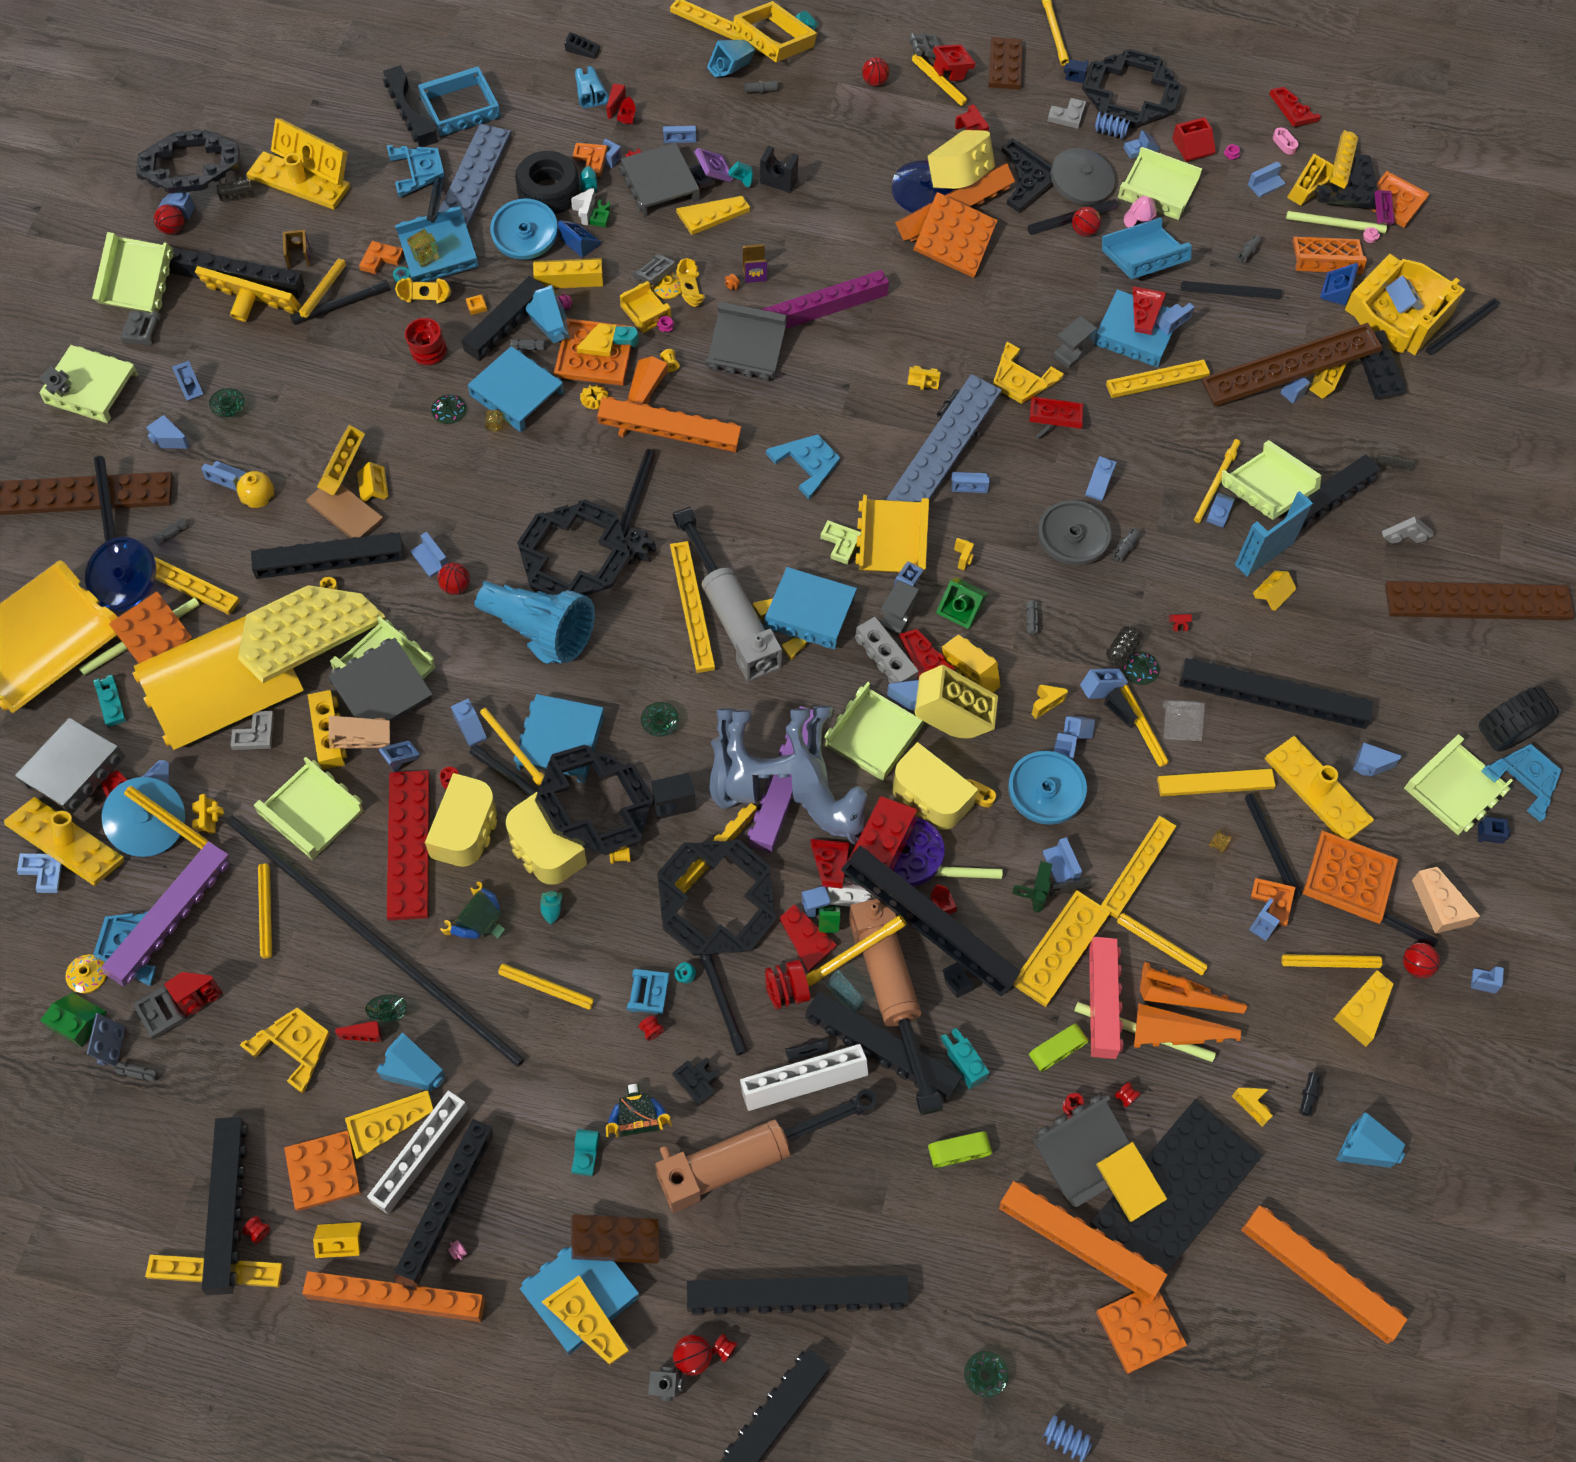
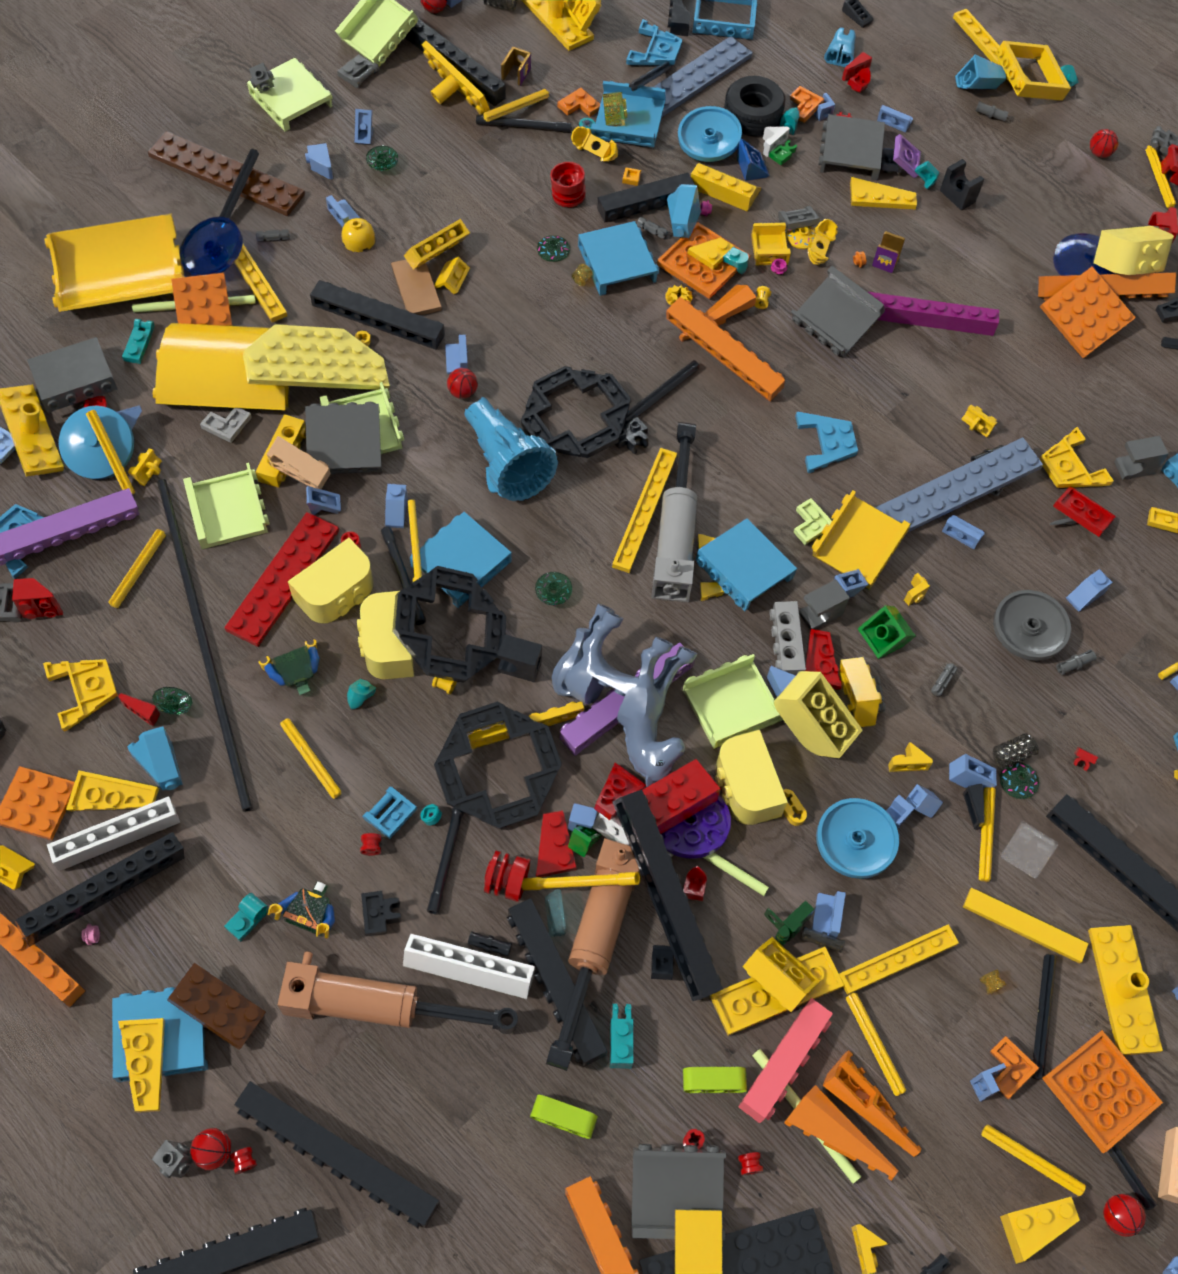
camera: 30 degrees right, 0 degrees up
(1058, 932) = (781, 974): none -> yellow slope

